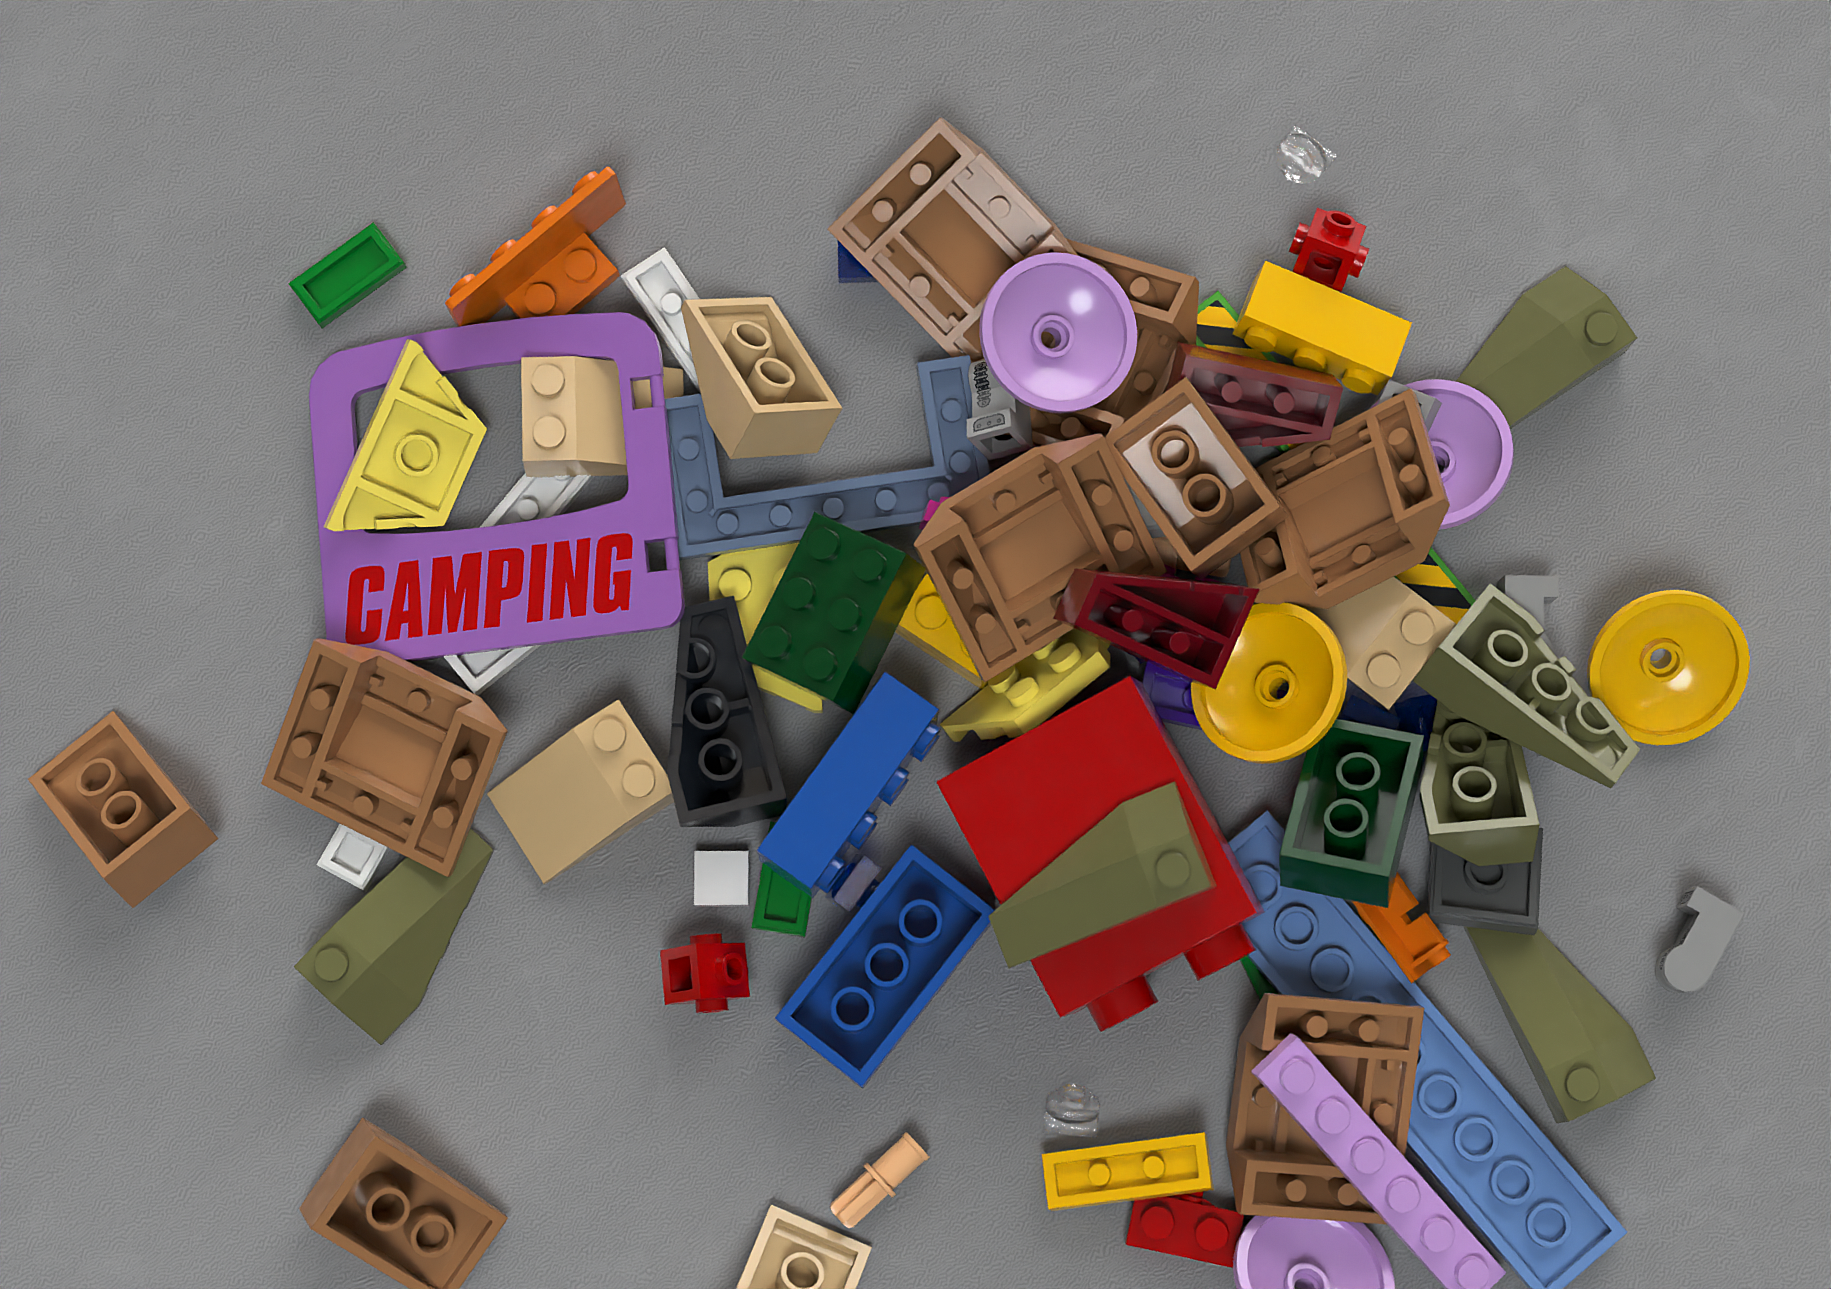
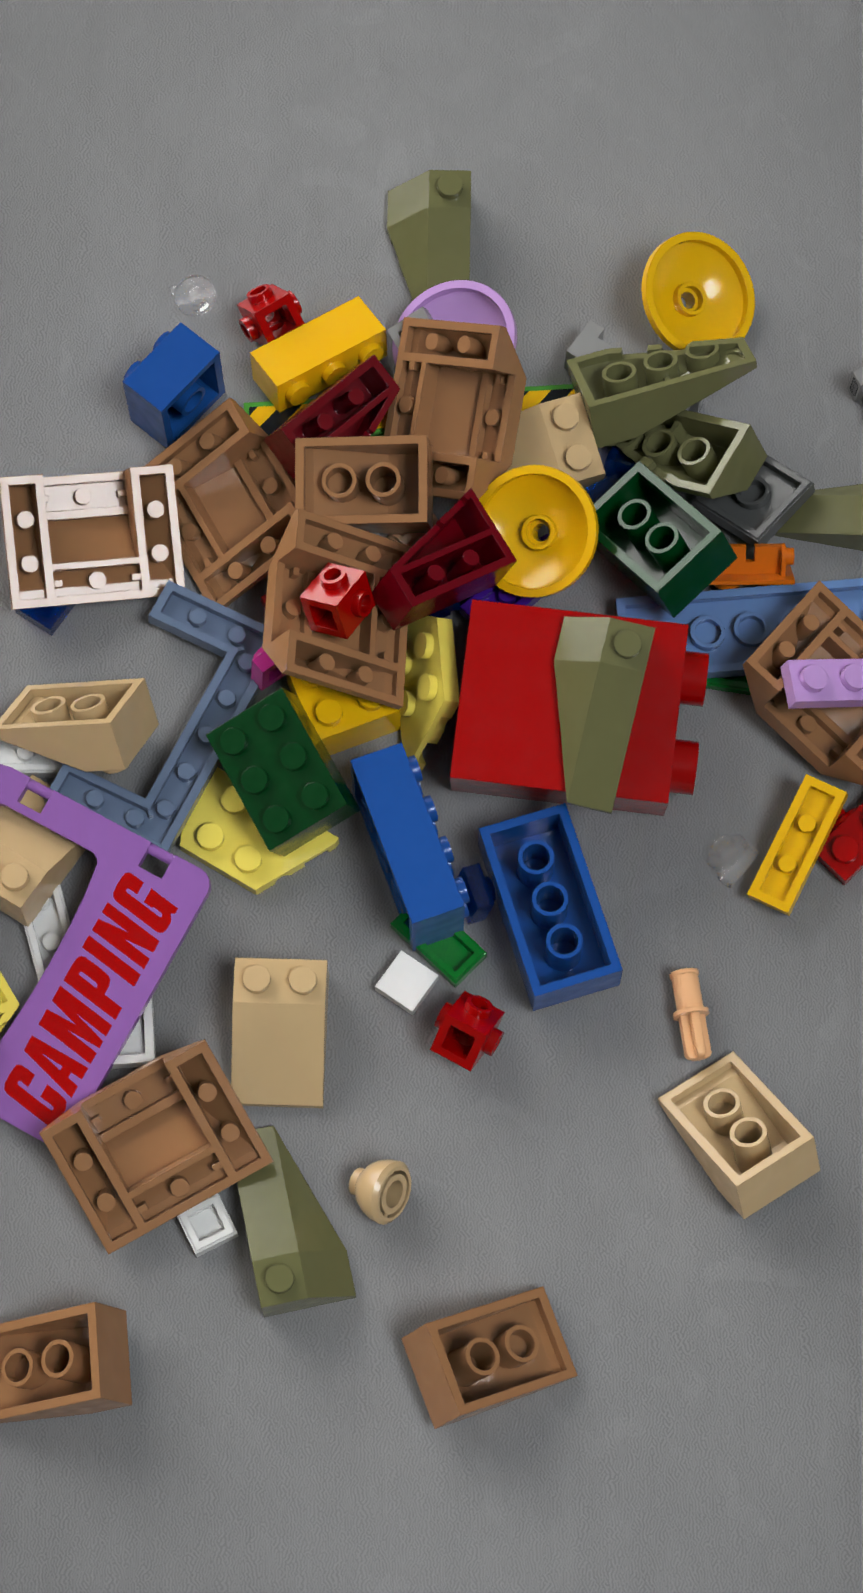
camera: 55 degrees left, 10 degrees down
(494, 998) = (381, 1189): none -> tan brick
(720, 740) = (311, 907): black wedge -> none
(996, 414) = (218, 582): light grey leg -> none
(1041, 542) = (337, 600): none -> red brick
(1084, 314) = (201, 488): lavender dish -> none
(1178, 209) = (173, 385): none -> blue brick

